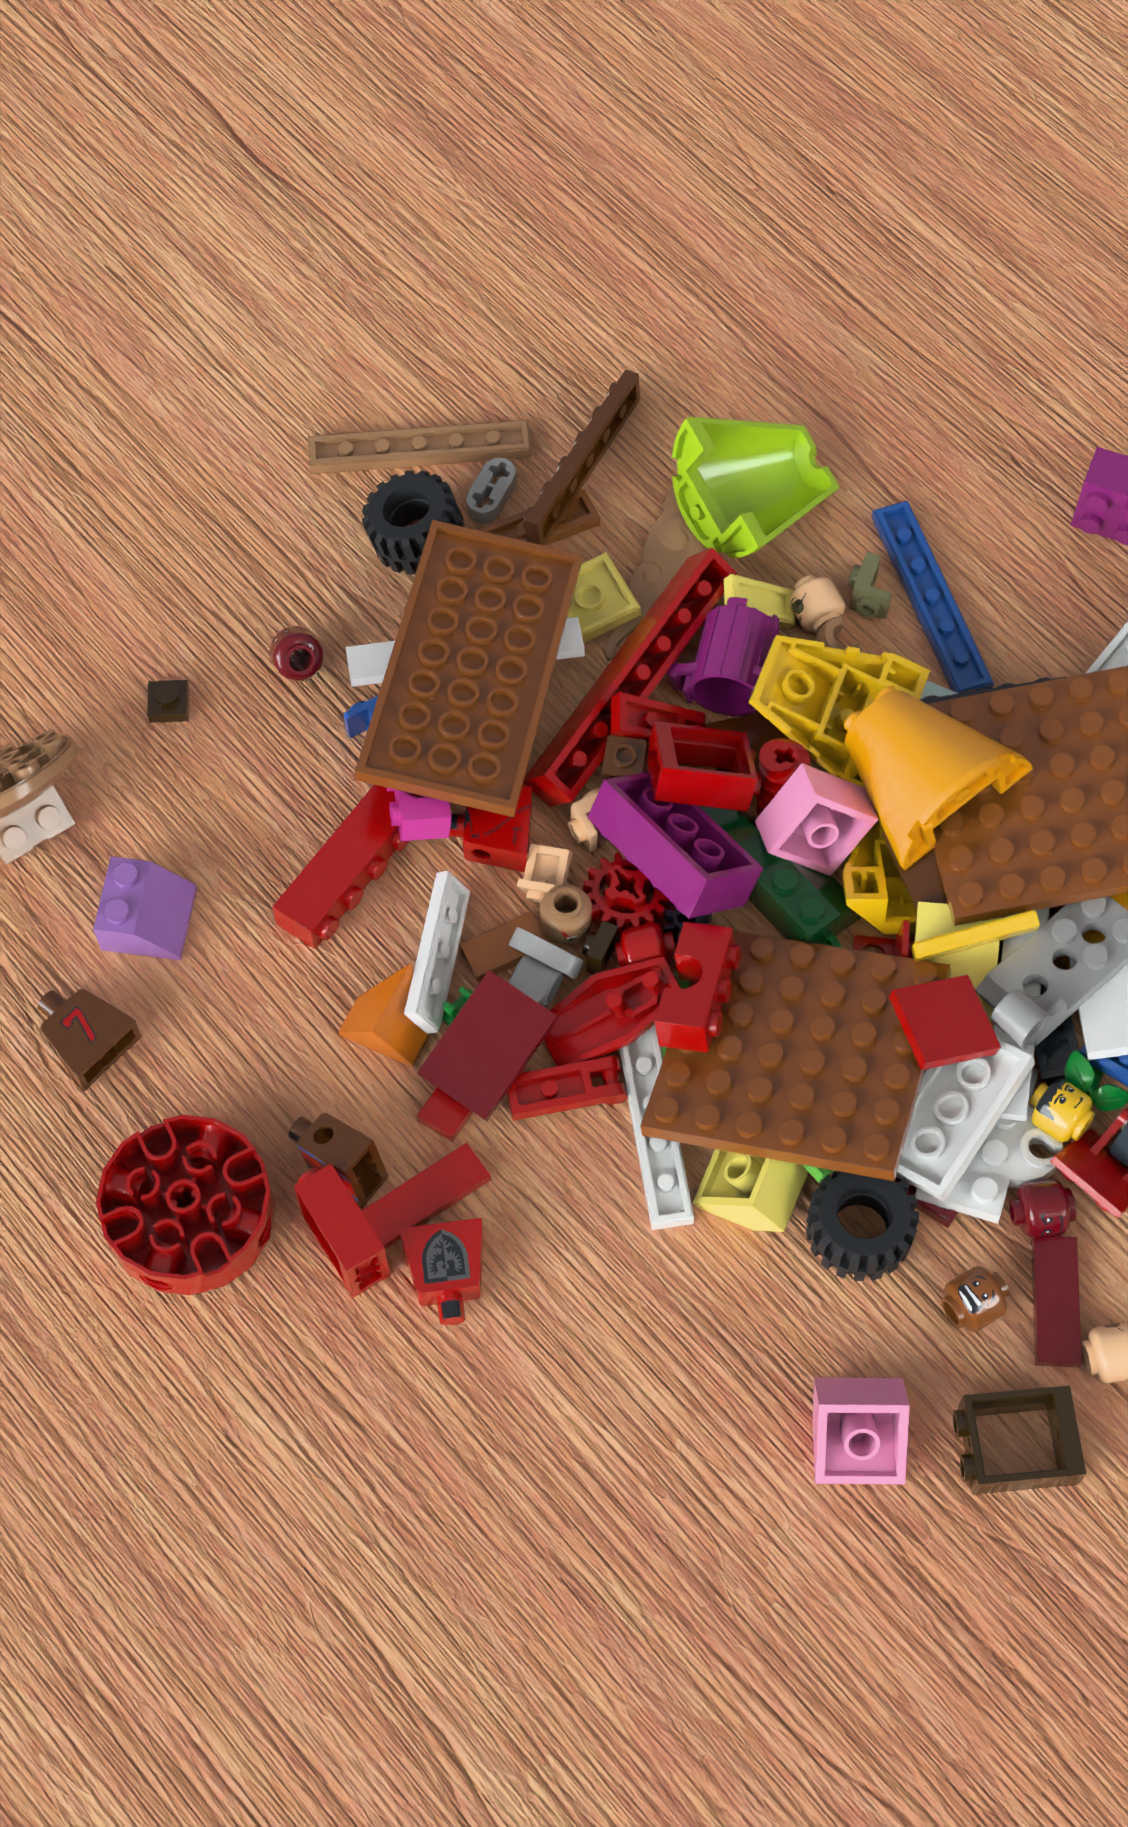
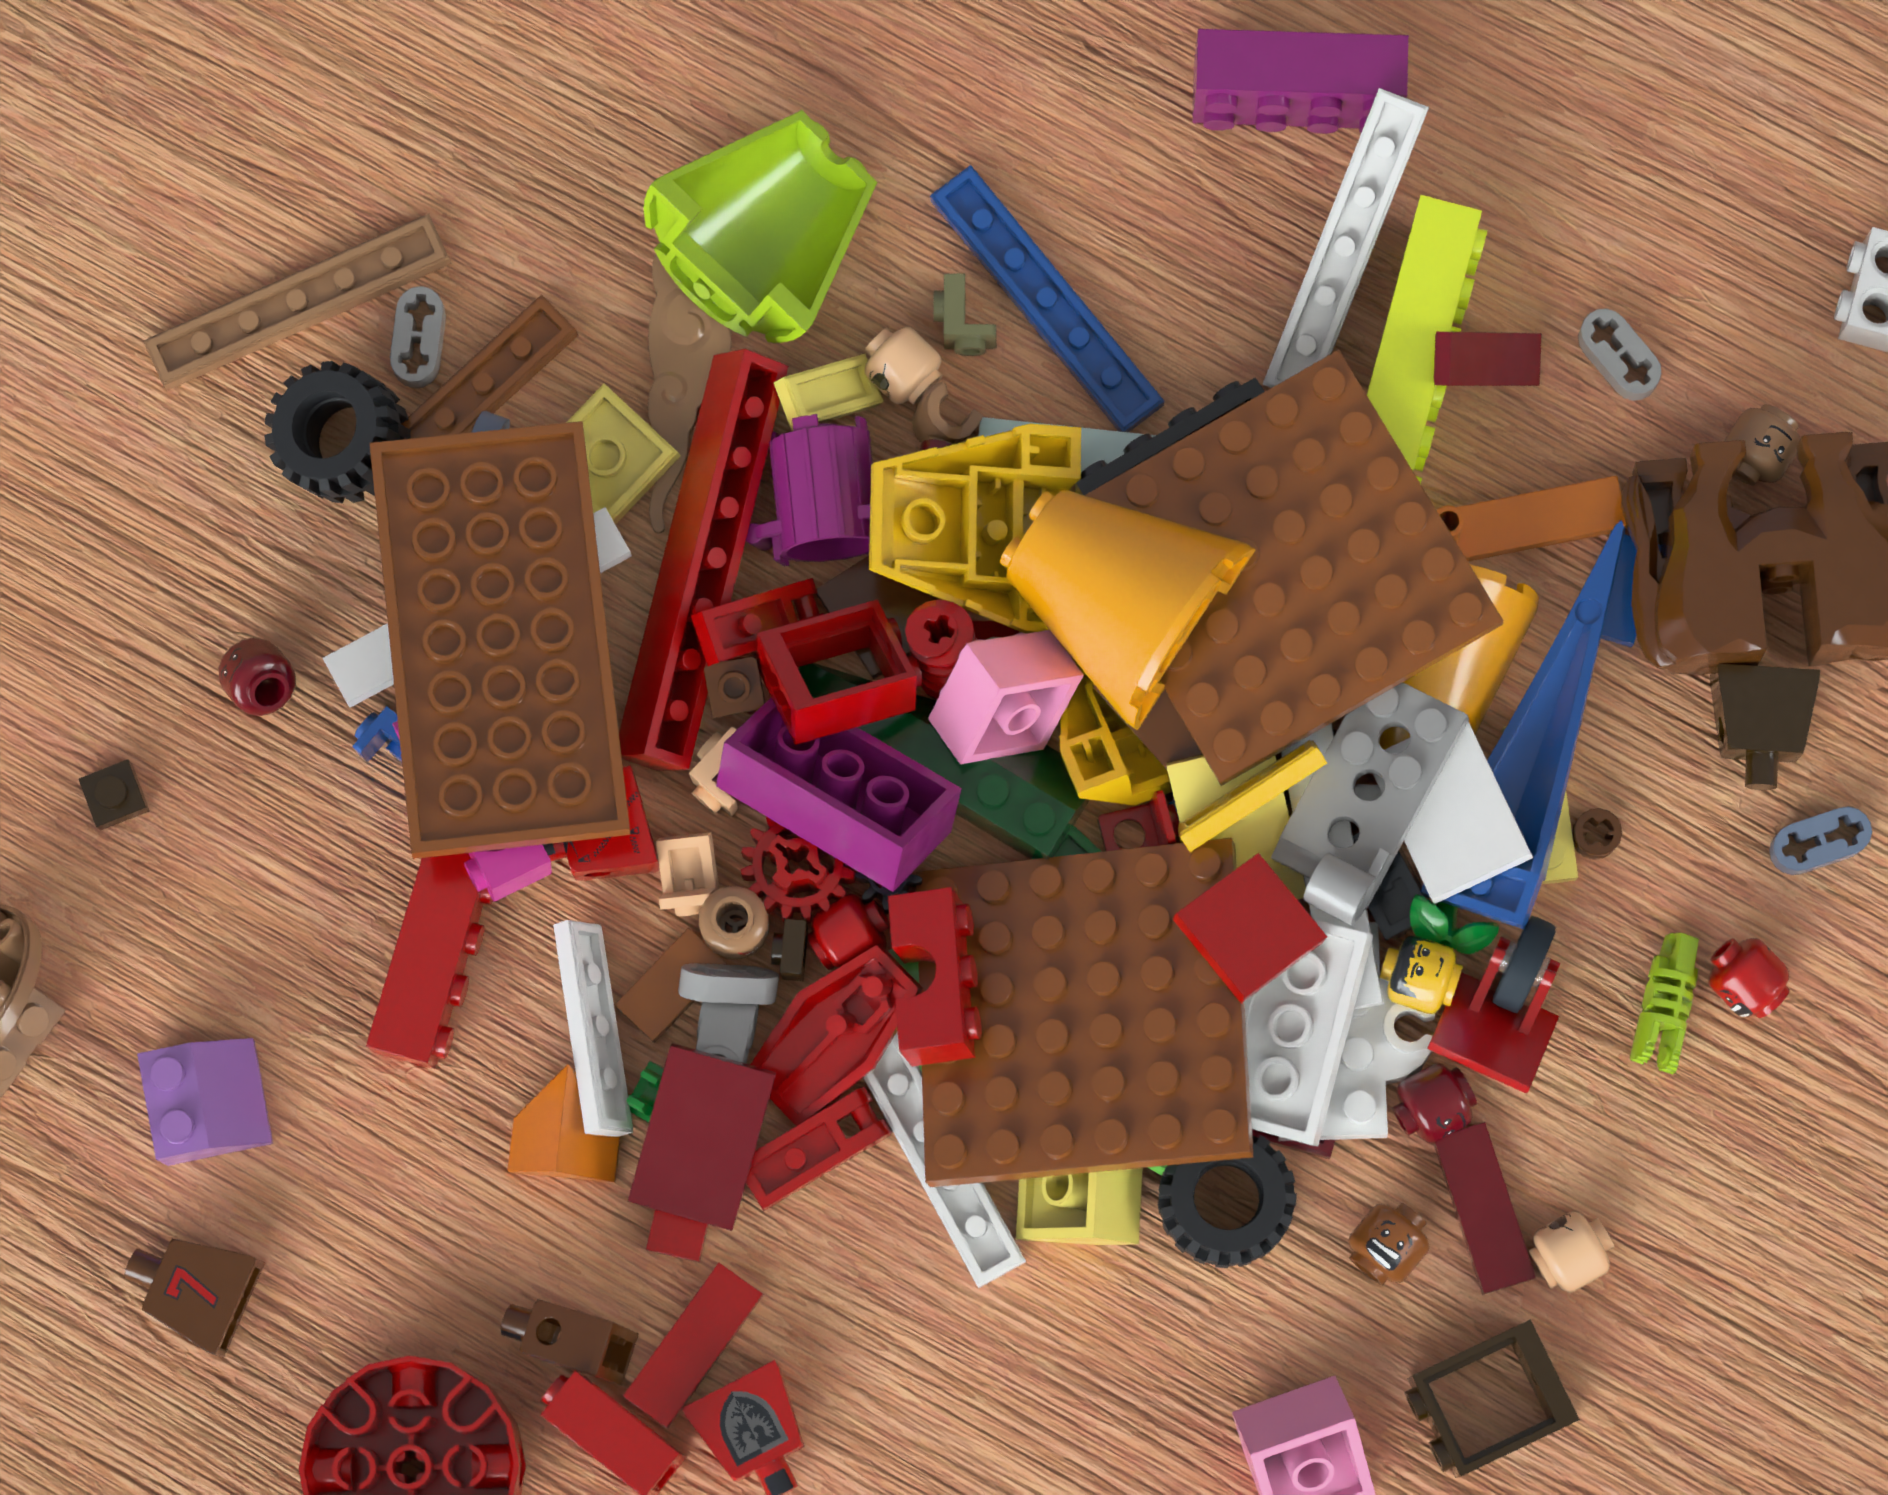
camera: 15 degrees left, 15 degrees up
(583, 458) = (527, 241): reddish brown plate -> none

